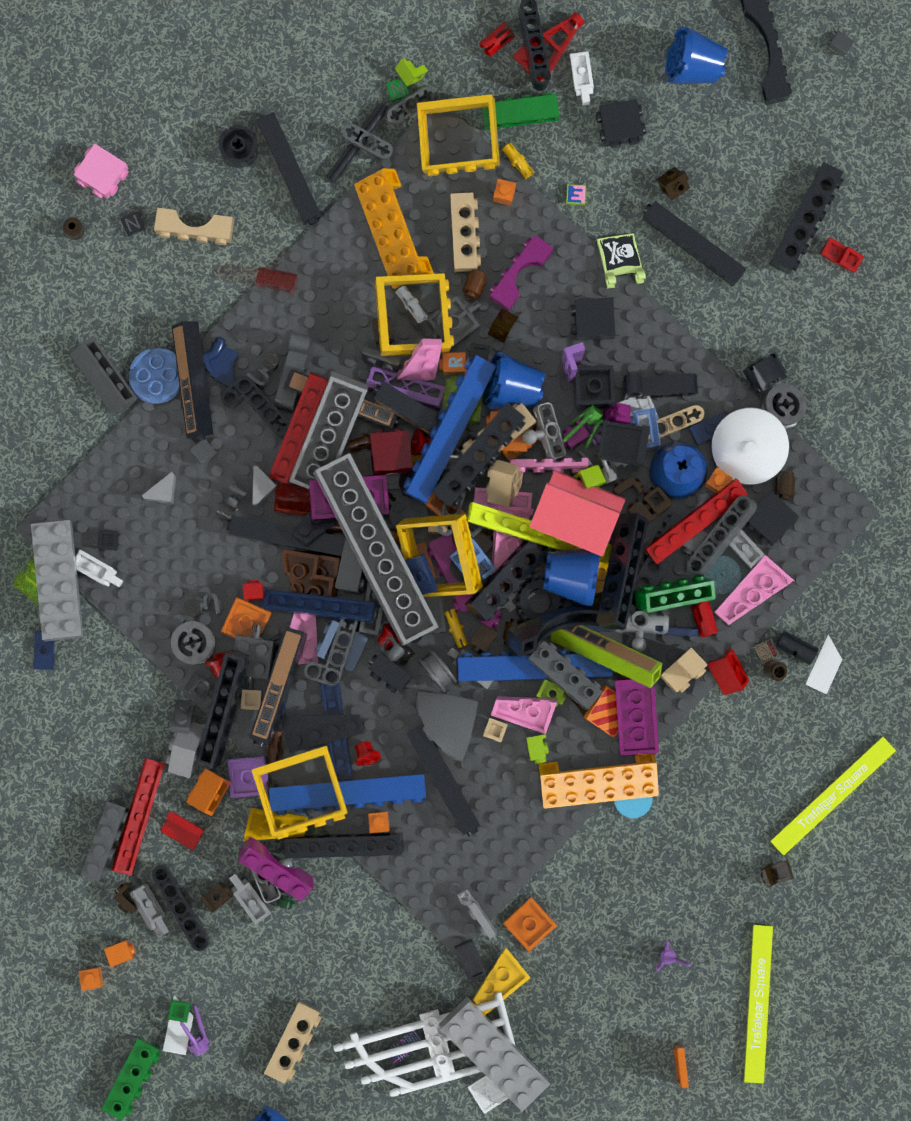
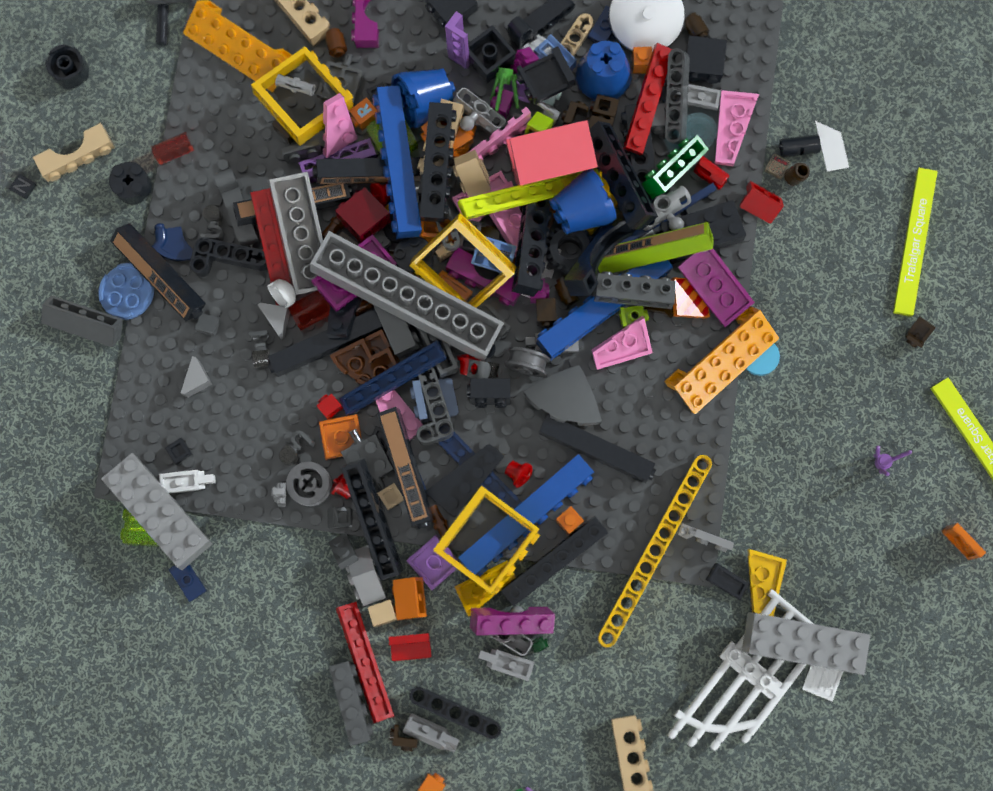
camera: 30 degrees left, 5 degrees down
(162, 636) = (279, 494): none -> light grey hinge
(178, 788) = (382, 613): none -> tan panel
(209, 900) = (473, 687): dark brown brick -> none
(218, 275) = (131, 174): none -> black brick
(280, 471) = (282, 292): none -> white hair
(289, 169) = (121, 57): black brick -> none
(409, 1037) = (723, 684): black tile -> none
(419, 895) = (661, 543): none -> yellow beam
(422, 574) = (459, 289): dark blue plate -> none
(456, 628) = (518, 320): yellow pin -> none
(495, 730) = (609, 378): tan plate -> none
(502, 325) = (381, 59): dark brown bracket -> none
(529, 924) = (753, 517): orange tile -> none
(537, 749) = (654, 369): lime brick -> none
(684, 669) = (729, 211): tan brick -> none

